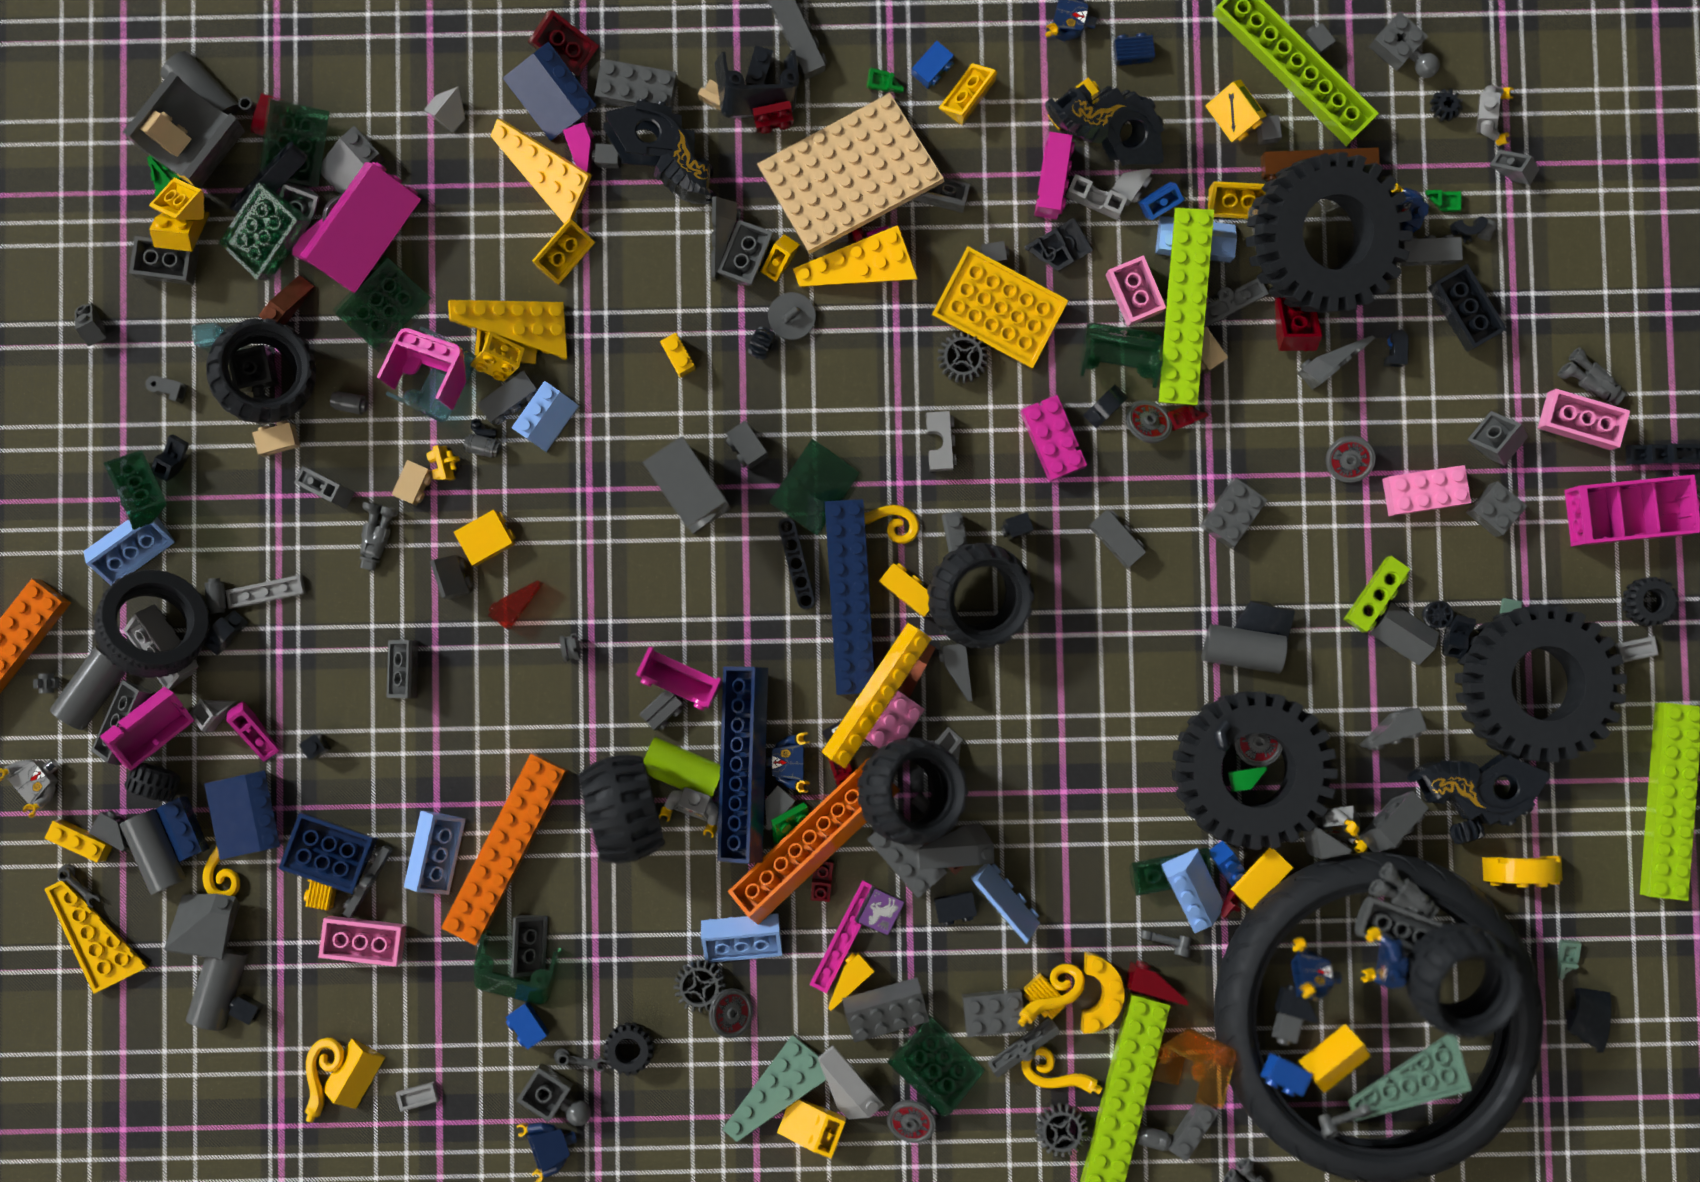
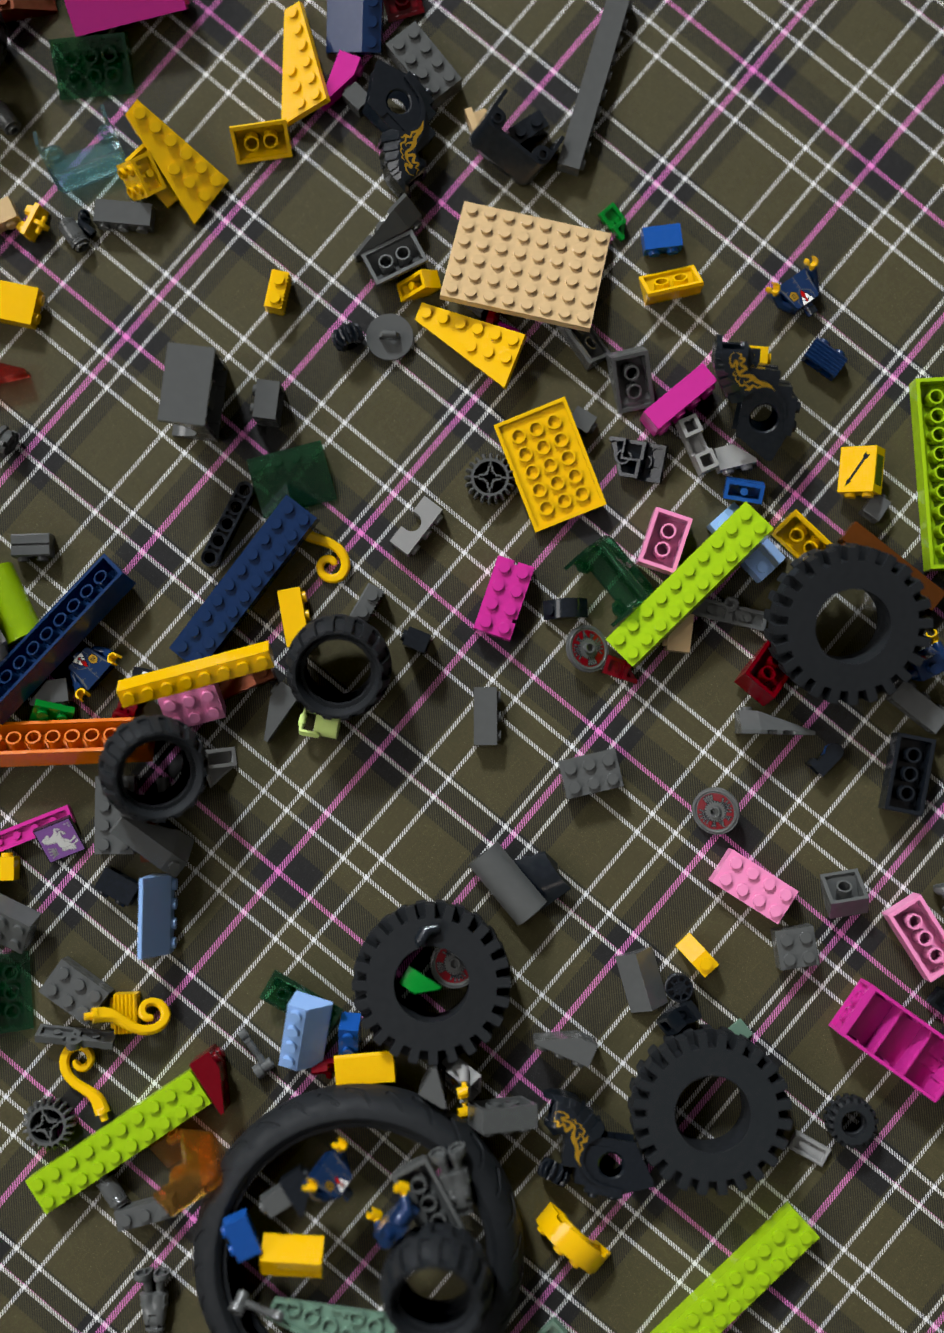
camera: 40 degrees right, 0 degrees up
(416, 348) = (79, 118): dark pink windscreen -> none
(545, 416) = (139, 252): light blue slope -> none
(678, 679) = (61, 531): dark pink windscreen -> none
(773, 117) = (505, 175): dark red slope -> none
(822, 882) = (37, 779): dark red slope -> none
(1002, 190) = (631, 379): none -> dark grey slope
(1002, 653) = (322, 726): none -> yellowish green piece
(1111, 998) = (165, 1063): yellow brick -> none
(1356, 615) = (673, 918): lime brick -> none
(1430, 578) = (697, 955): none -> yellow slope

